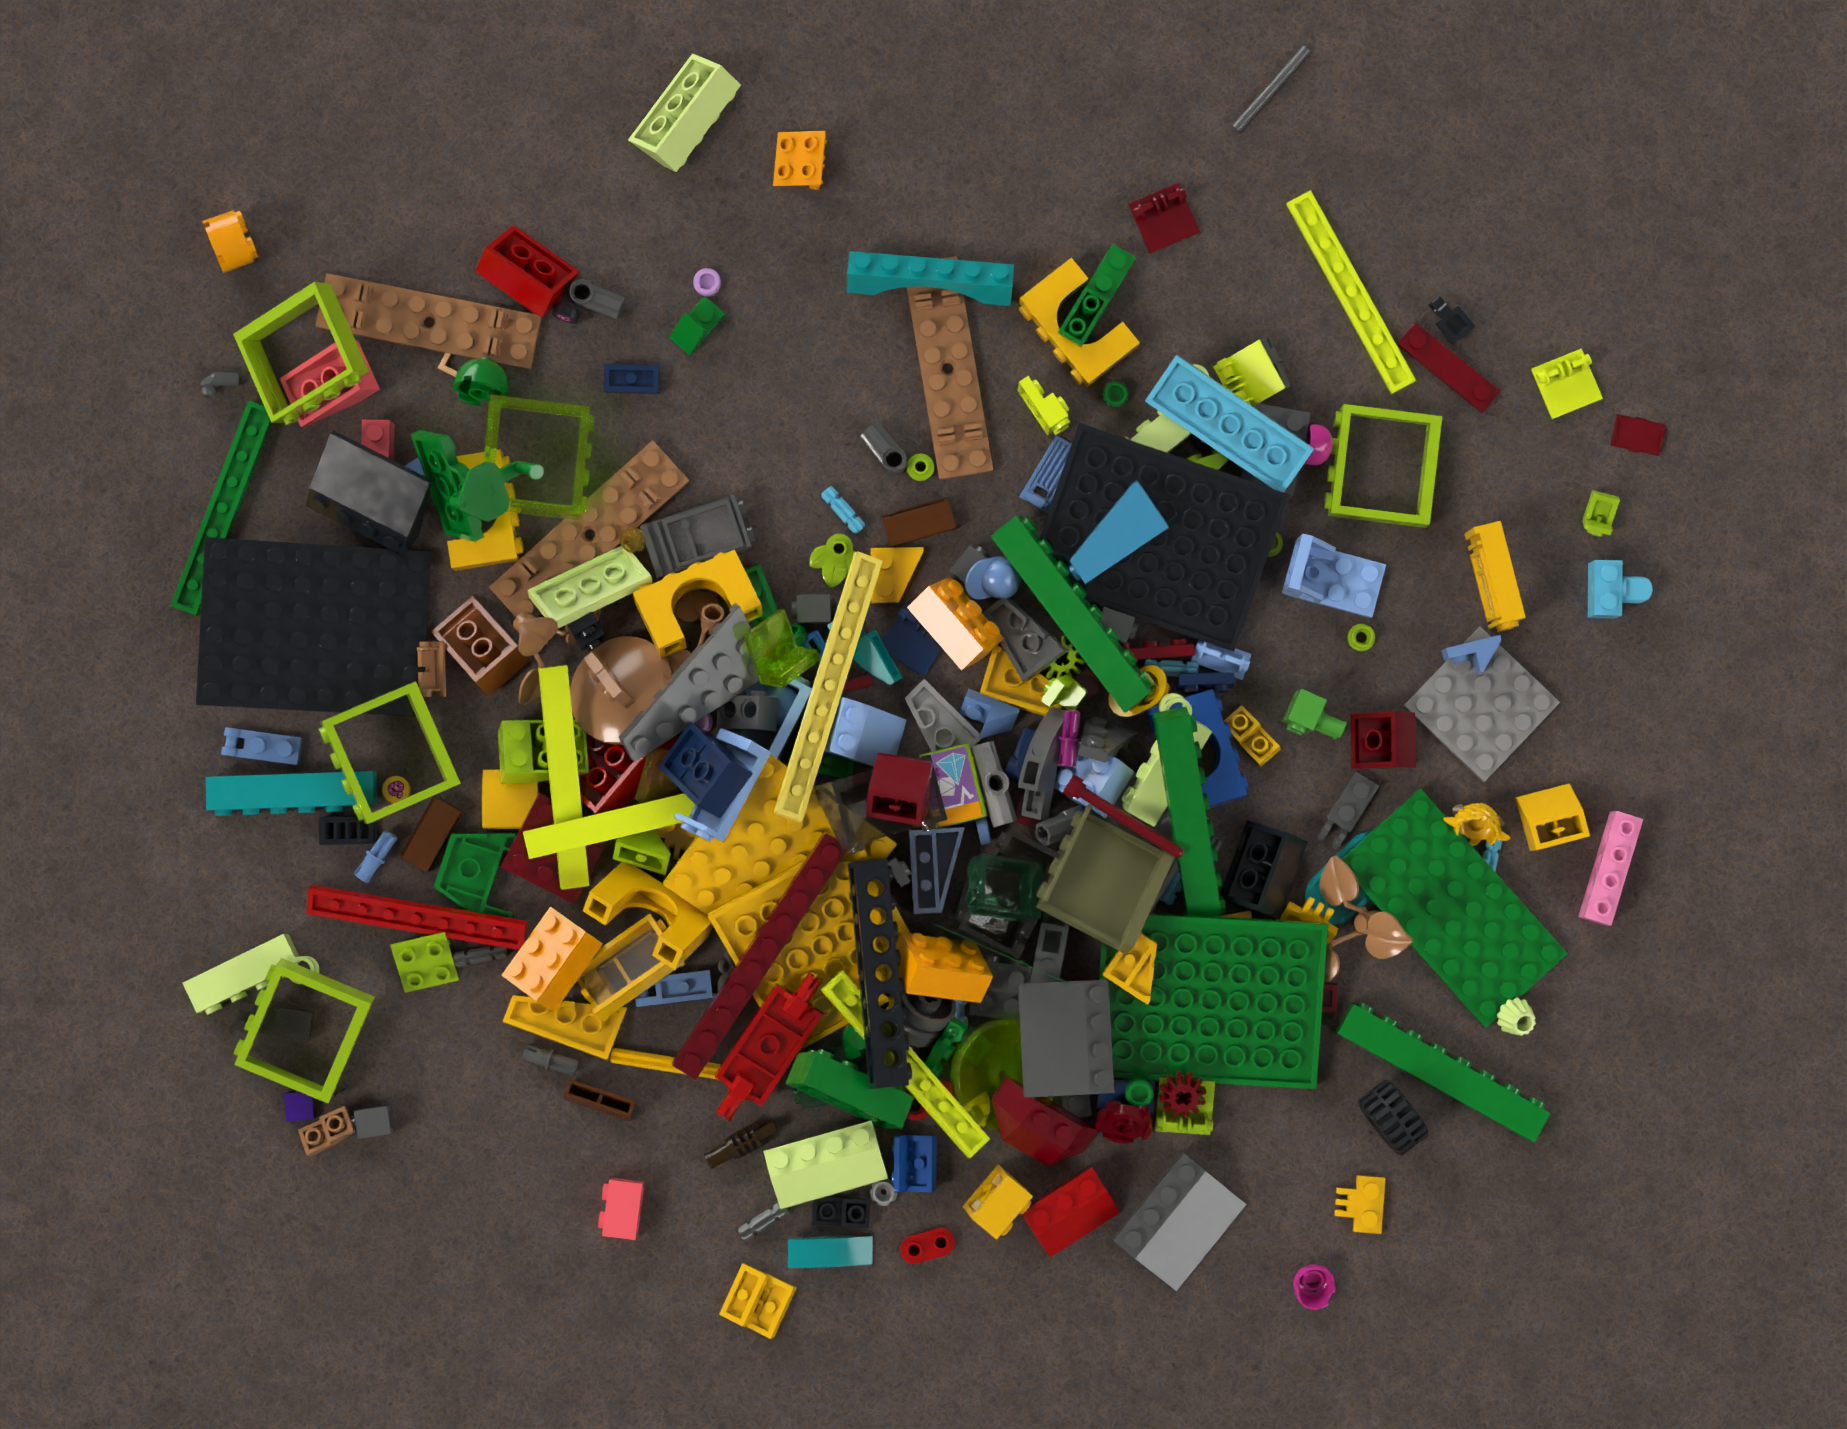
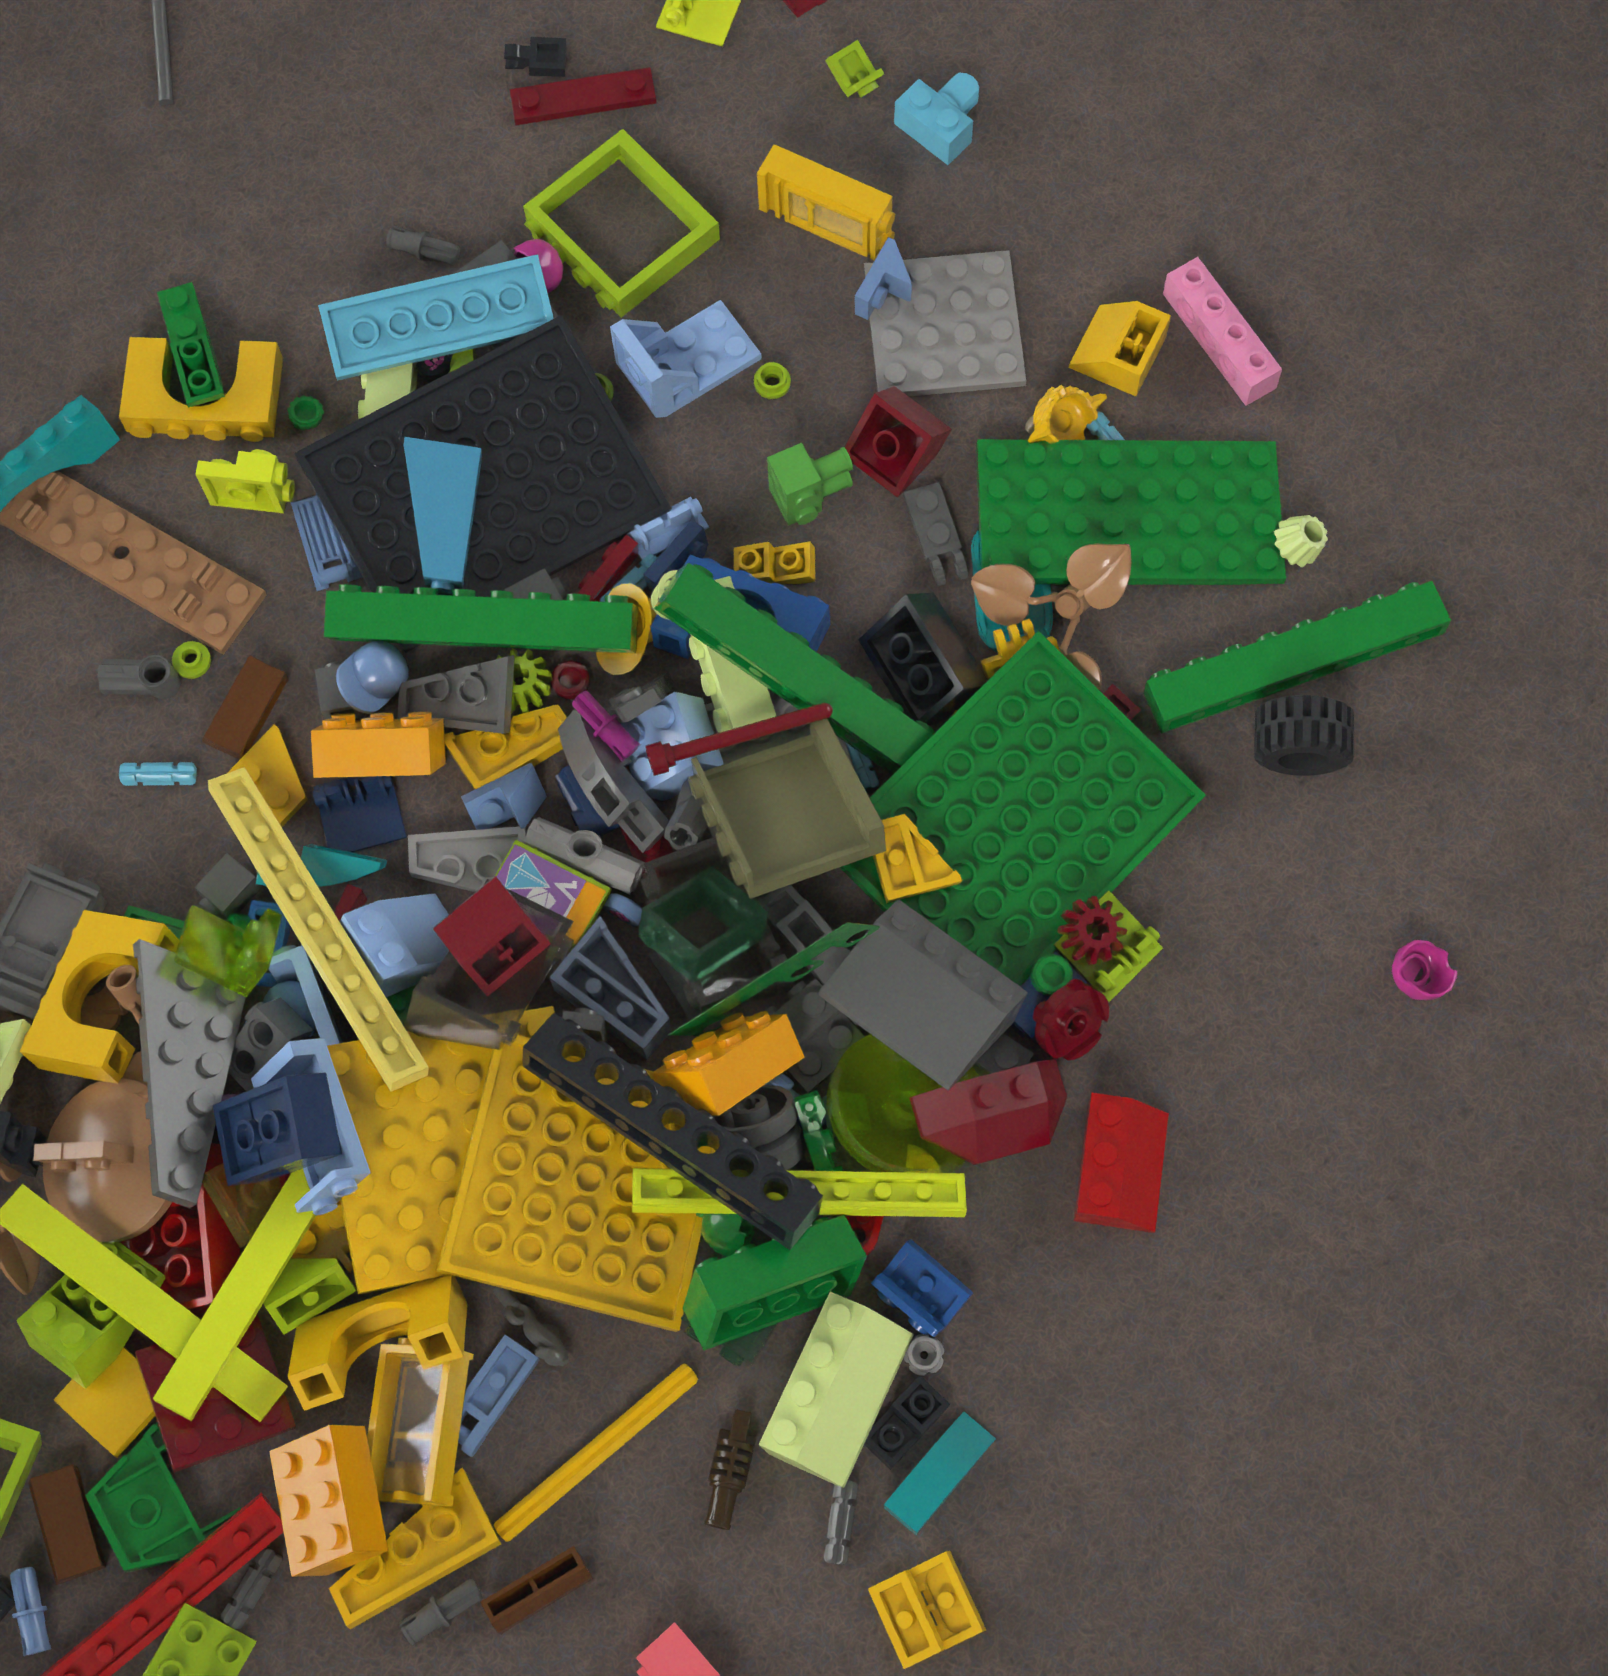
camera: 45 degrees left, 15 degrees down
(759, 956) = (536, 1255): dark red plate -> none
(768, 1045) = (644, 1333): red plate -> none
(833, 564) = (202, 830): lime plate -> none
(927, 1245) = (1027, 1356): red plate -> none
(998, 1202) = (1043, 1228): yellow slope -> none
(1065, 692) = (553, 698): lime bracket -> none
(1164, 217) = (182, 230): dark red hinge -> none
(1178, 1221) = (1229, 1056): slope -> none
(1250, 374) = (409, 261): neon yellow hinge -> none
(1351, 292) = (424, 124): neon yellow tile -> none
(1364, 1204) = (1374, 850): yellow hinge -> none

